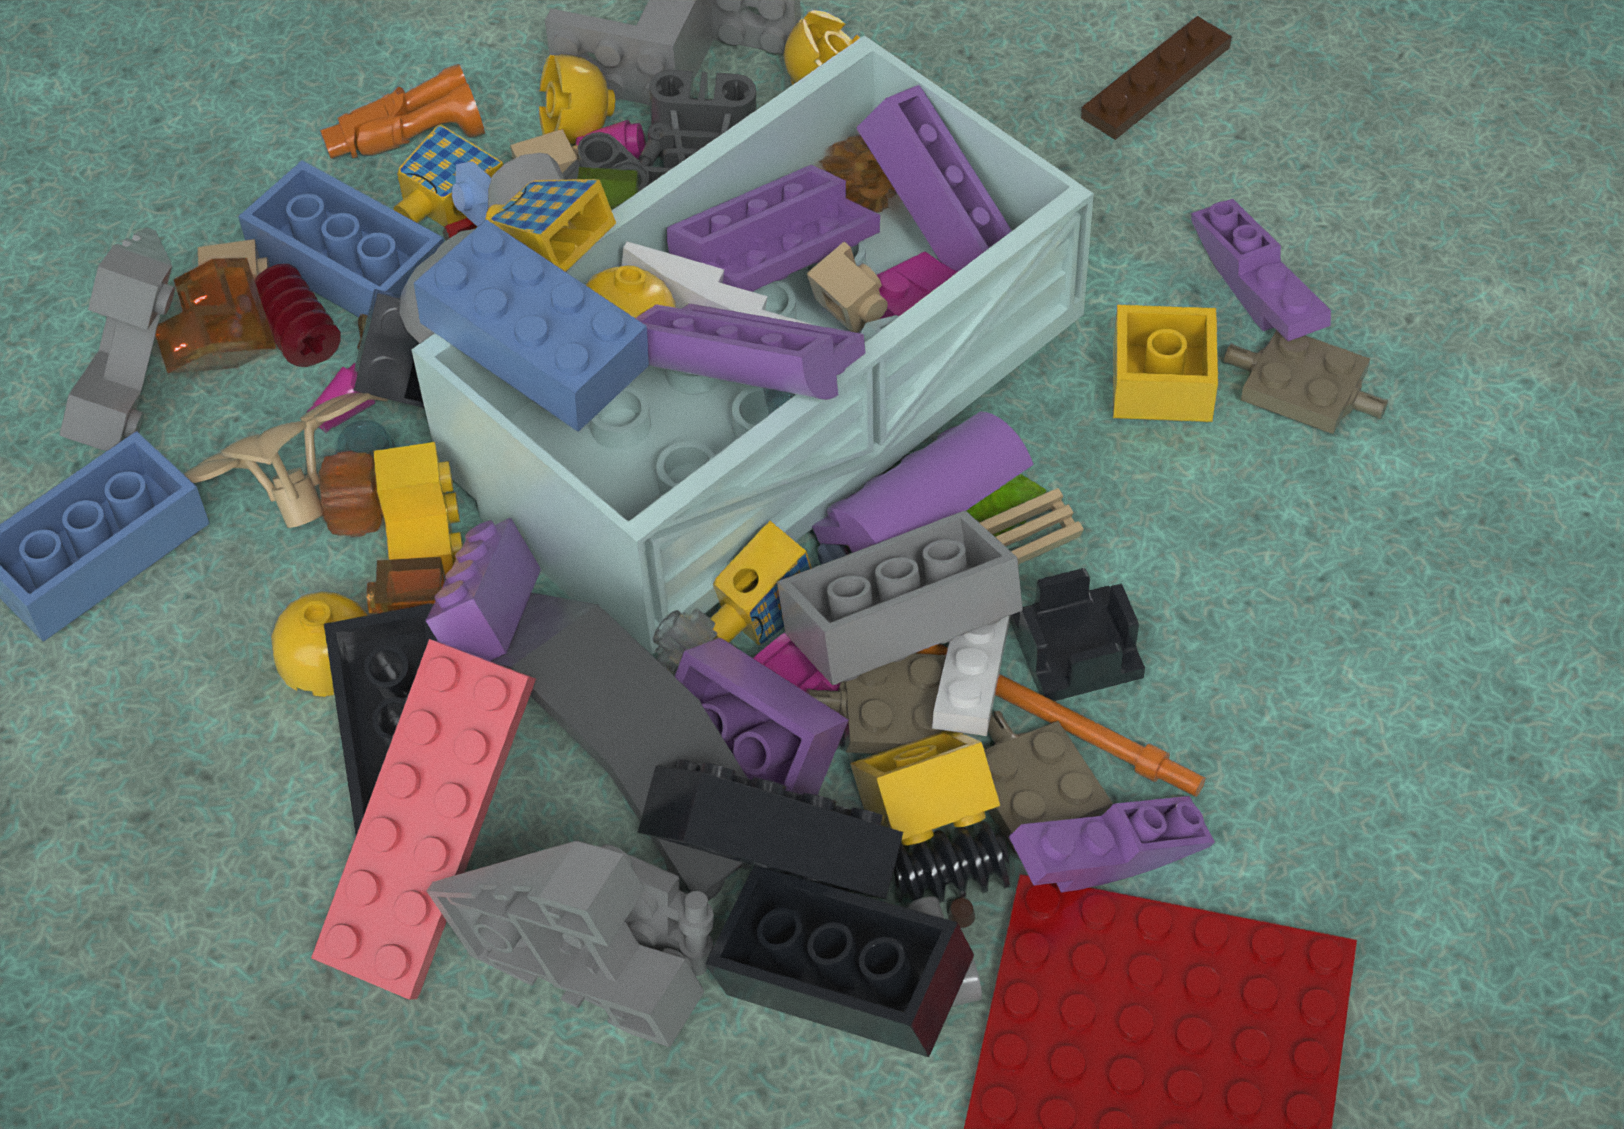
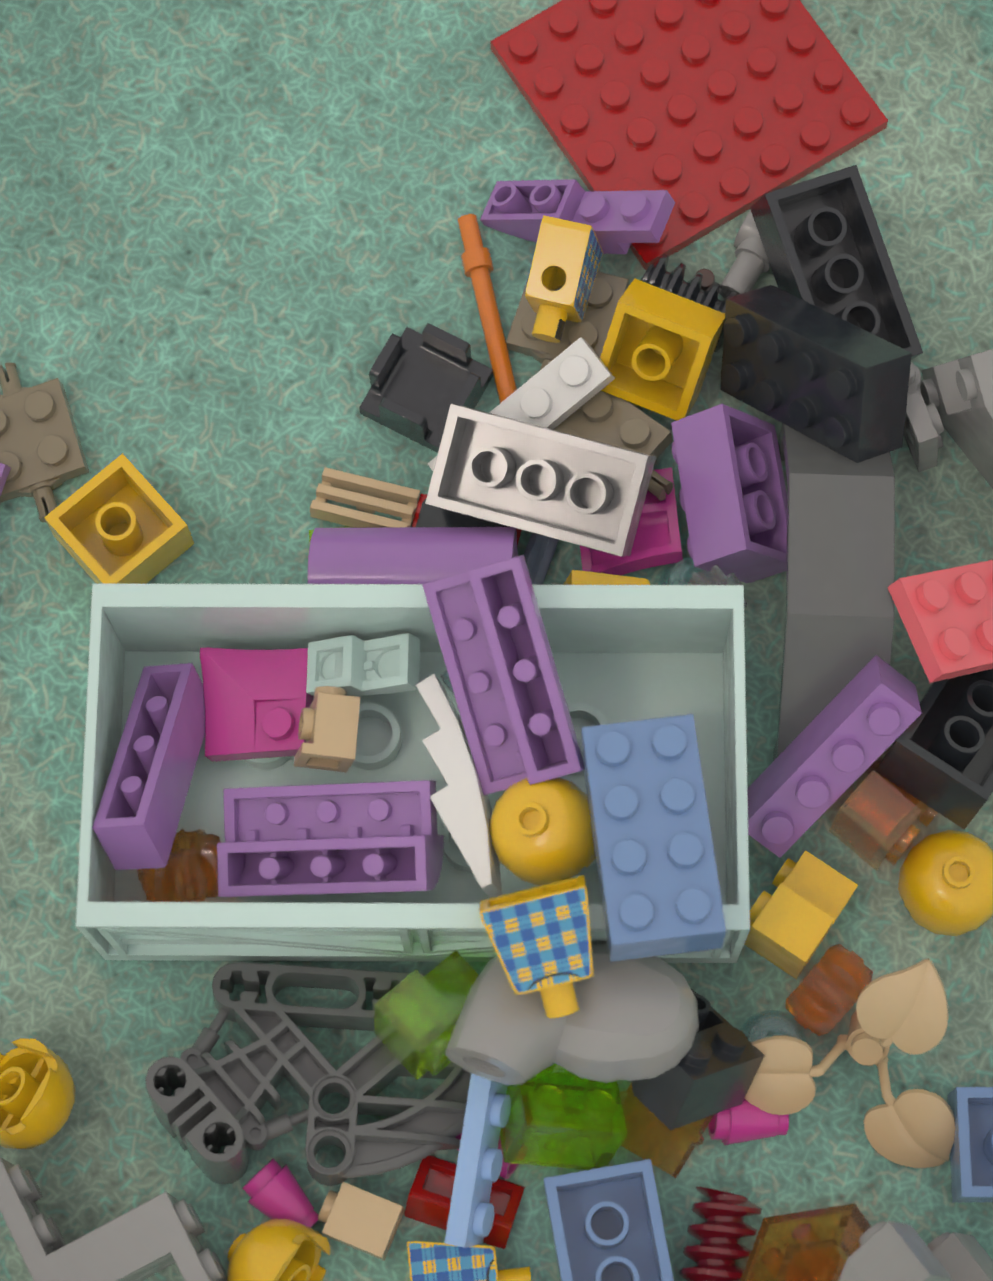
camera: 135 degrees left, 20 degrees up
(1060, 759) = (567, 259): none -> yellow torso

